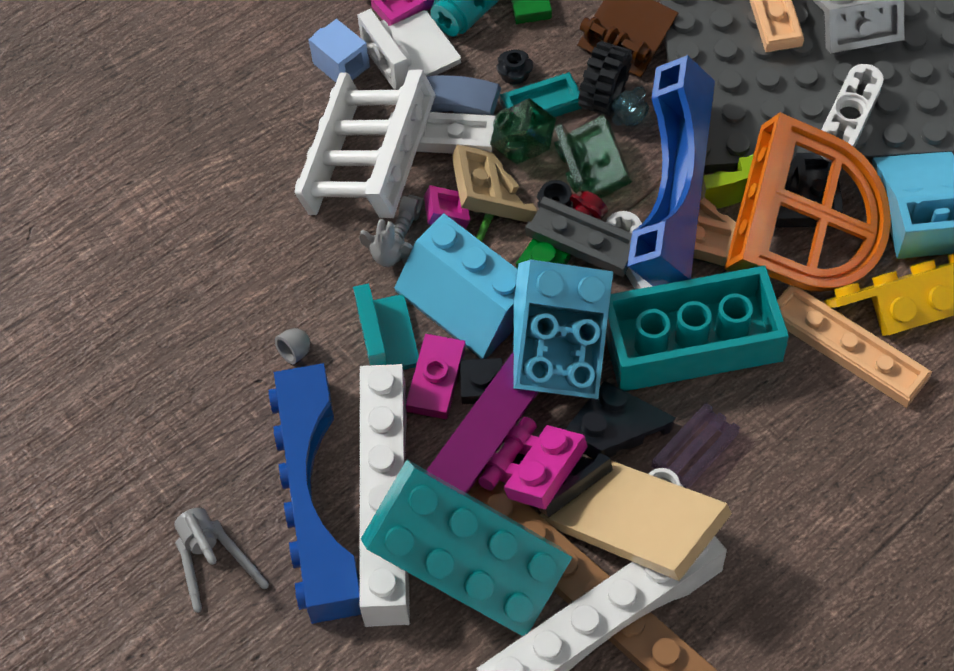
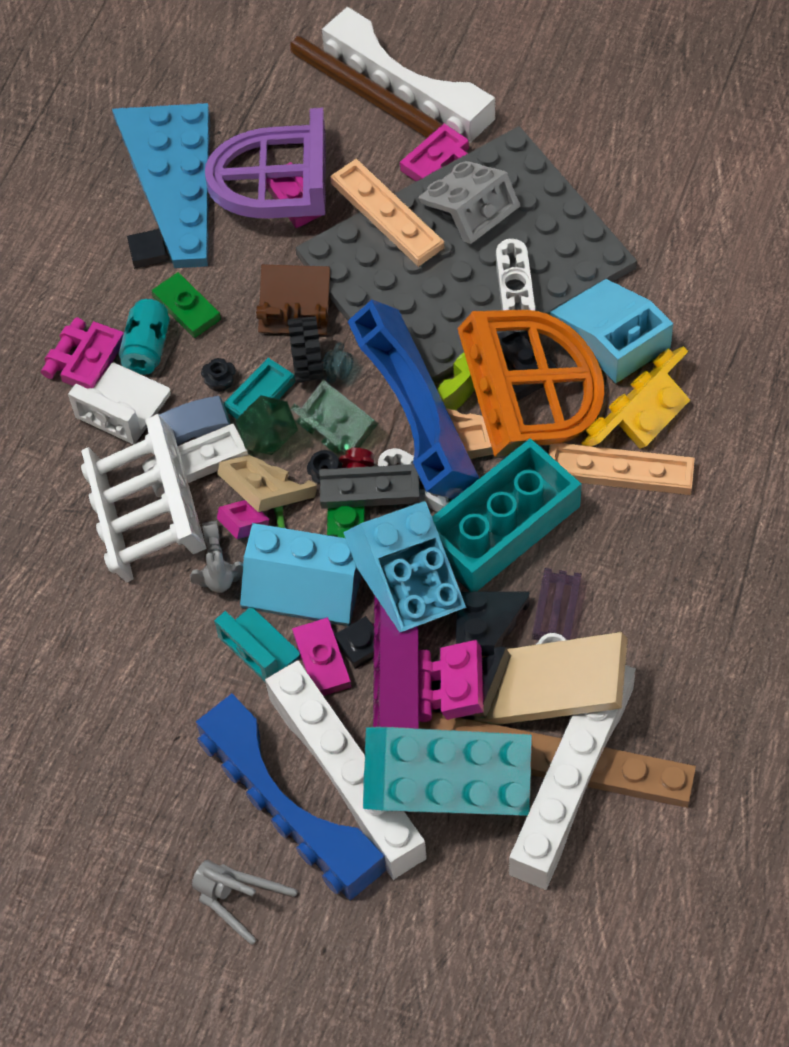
camera: 30 degrees left, 0 degrees up
(293, 344) = (189, 694): light grey hinge -> none
(339, 50) = (63, 433): light blue brick -> none

